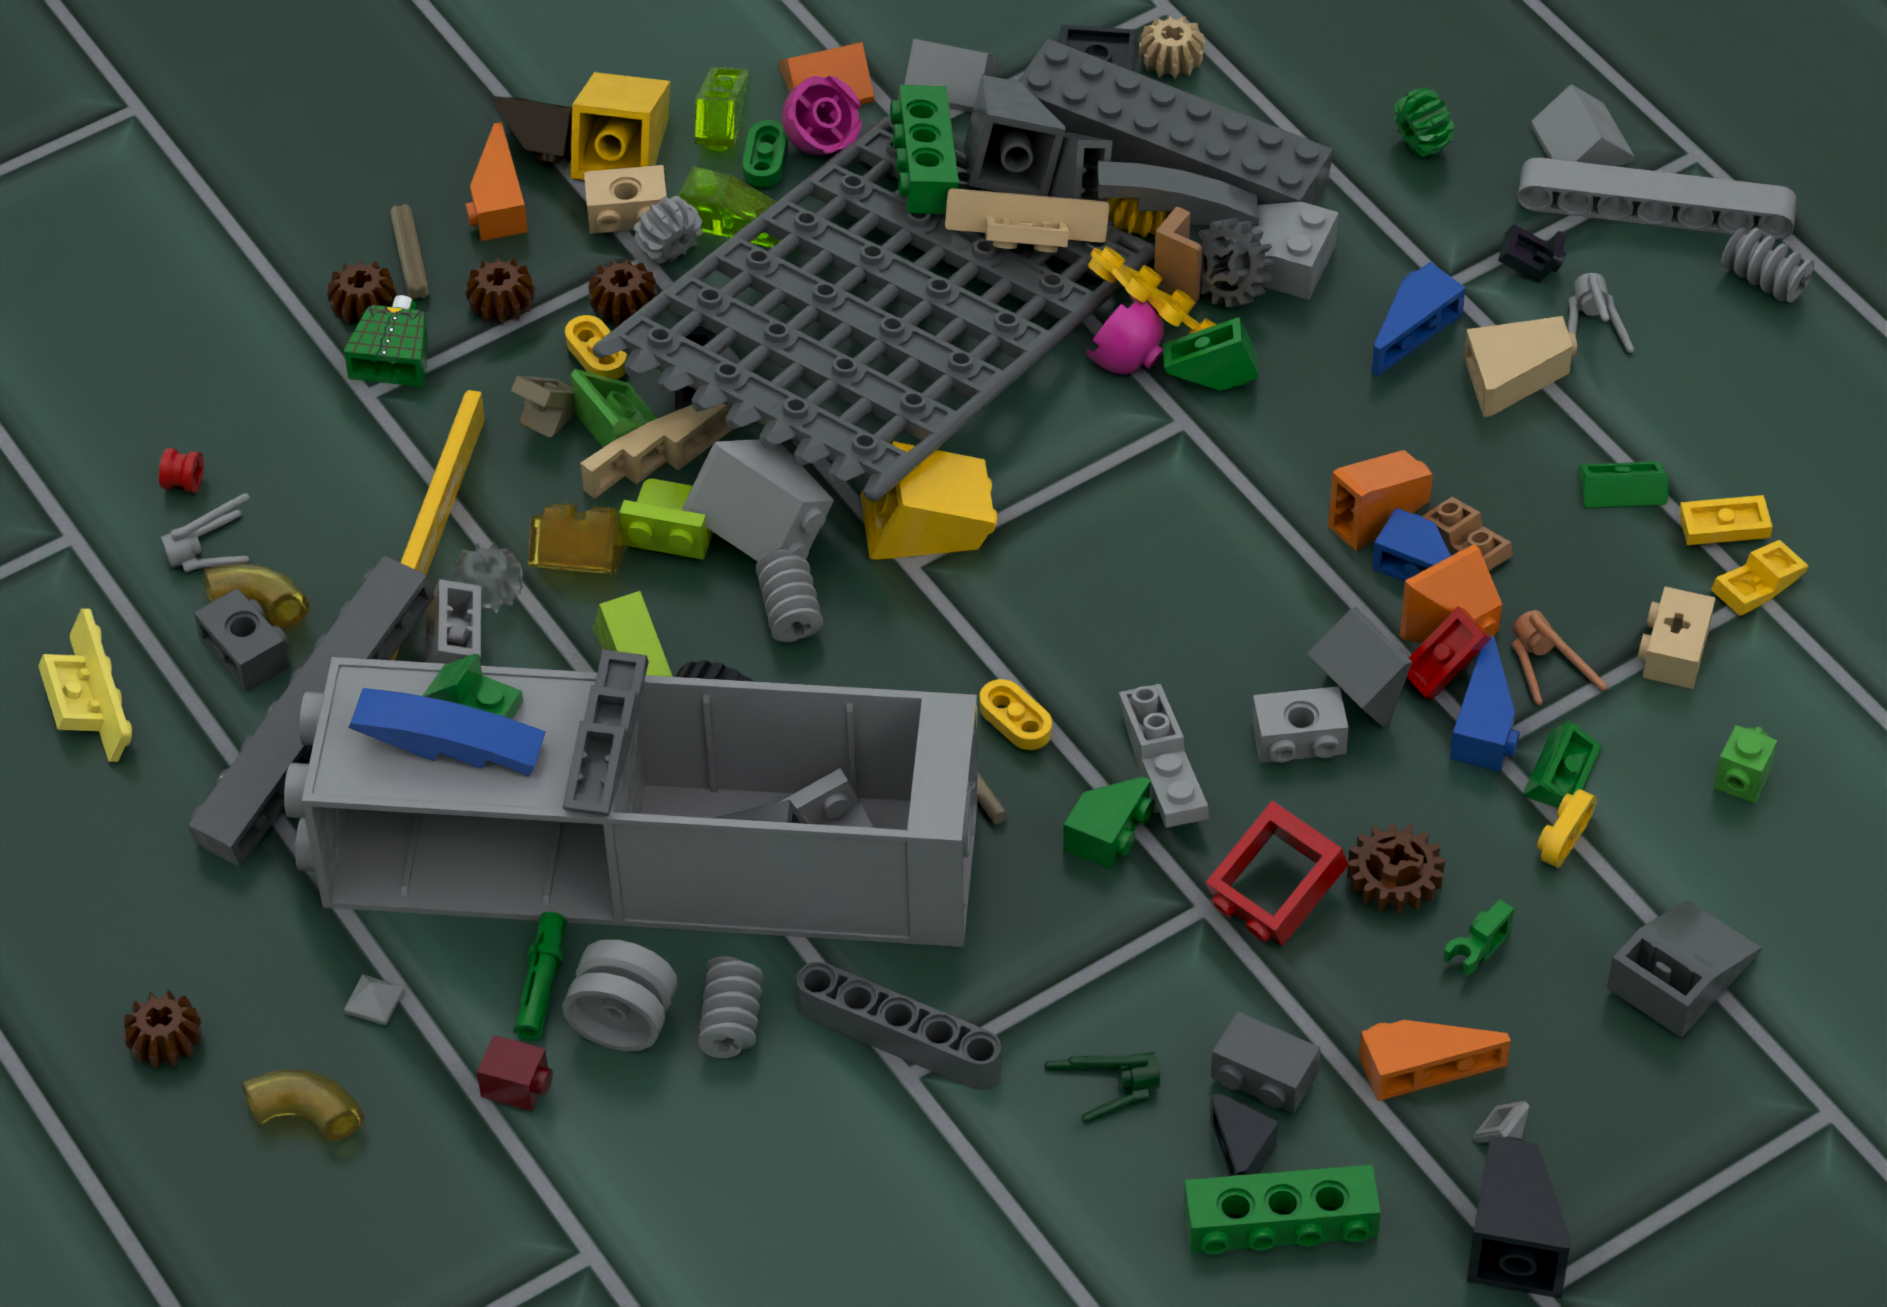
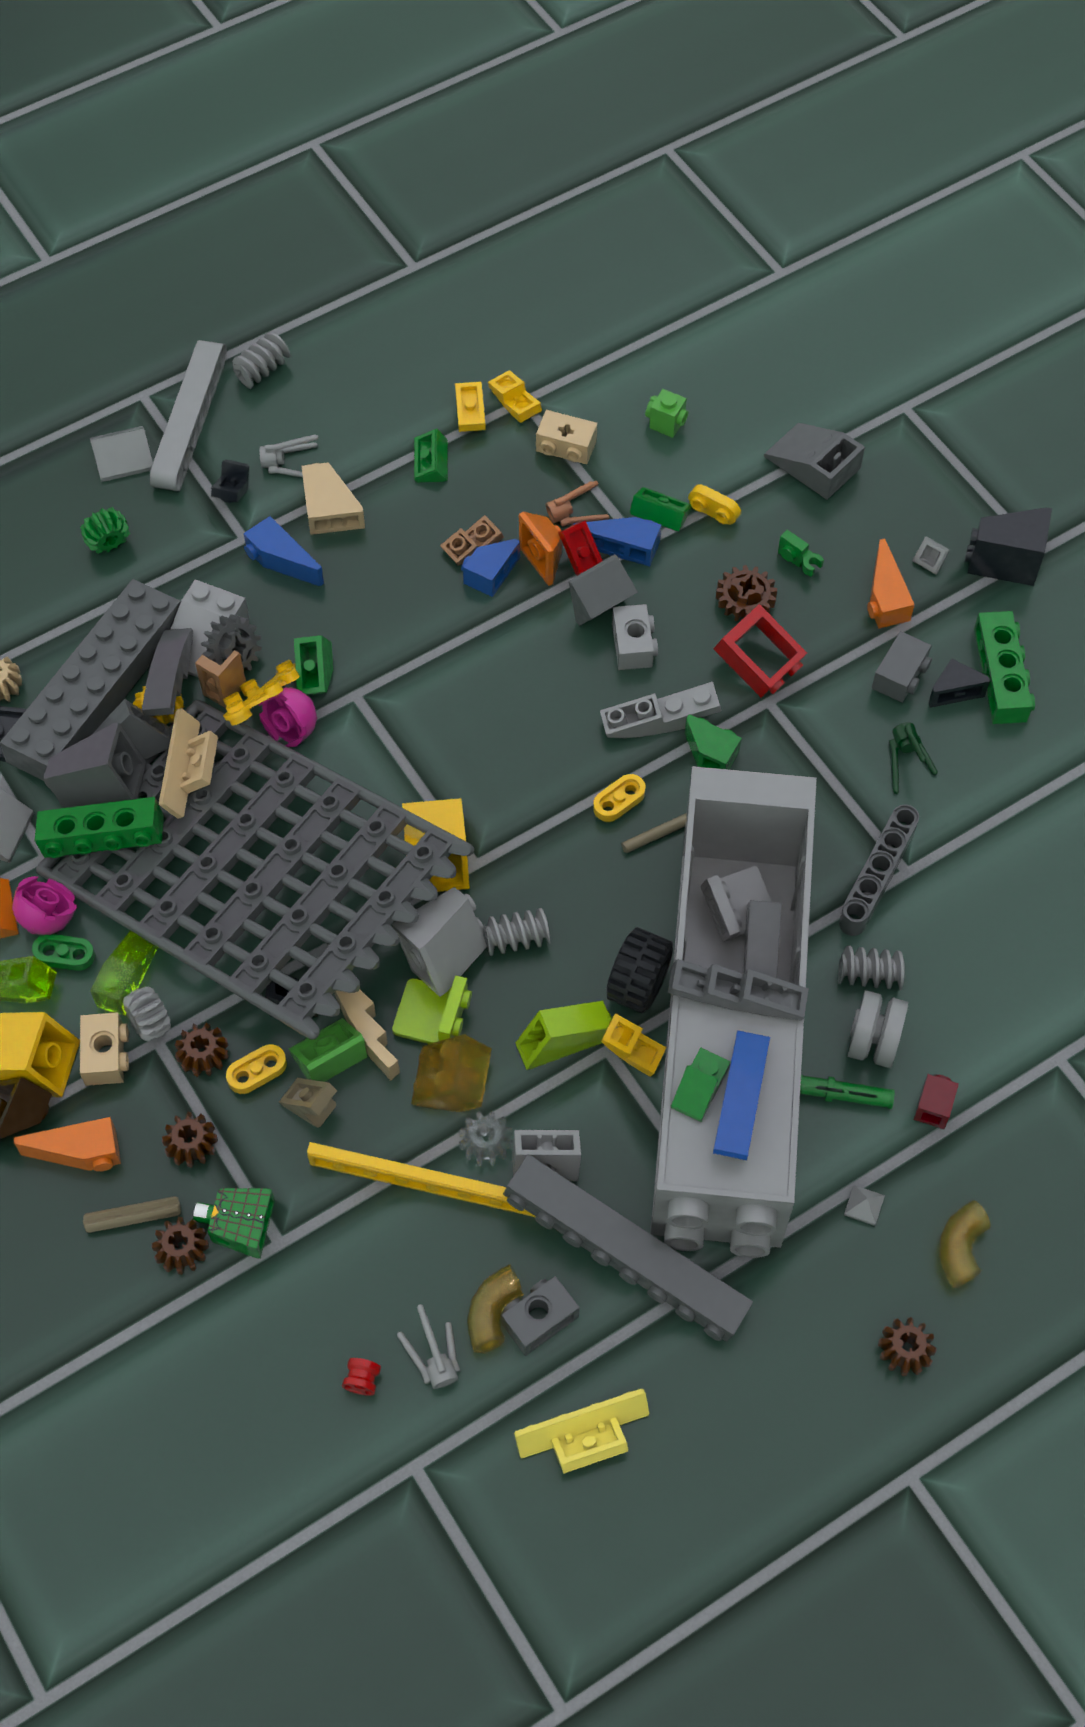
camera: 90 degrees left, 10 degrees up
(1370, 491) = (447, 580): orange slope -> none

